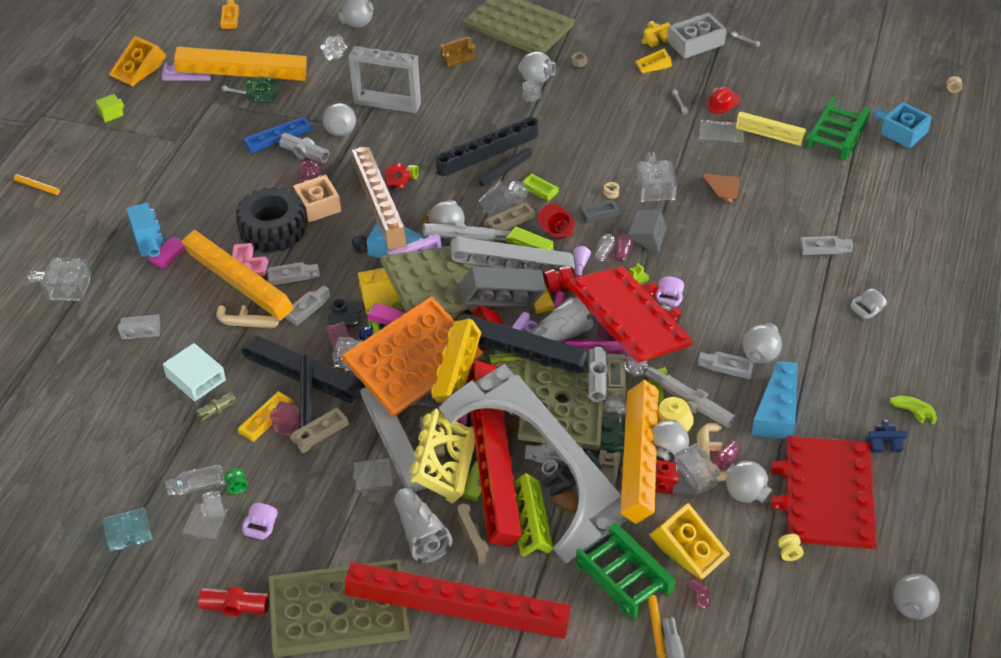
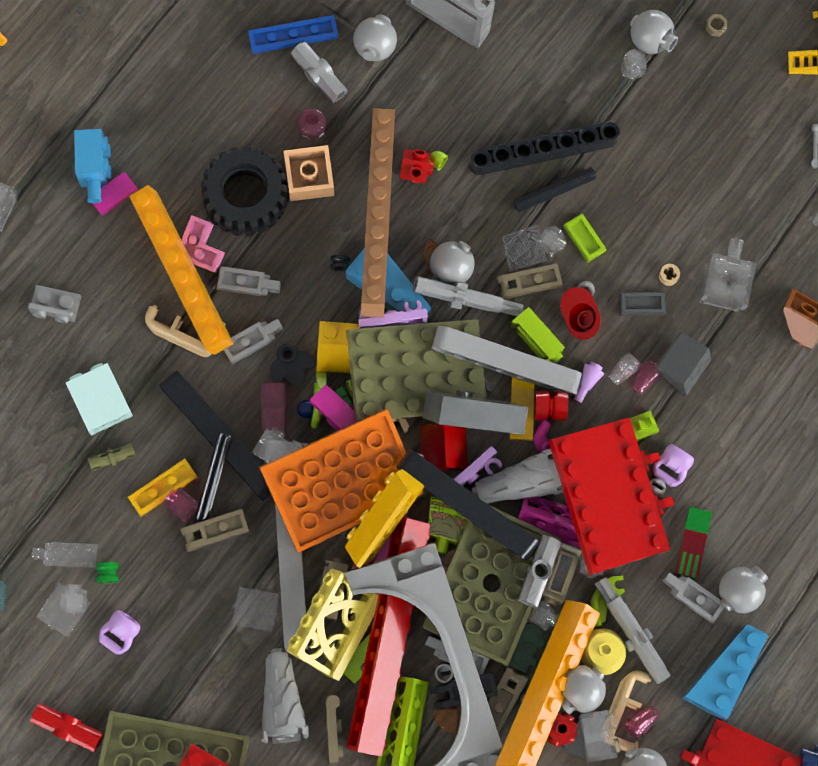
camera: 10 degrees right, 30 degrees up
(708, 332) = (693, 543): none -> tile

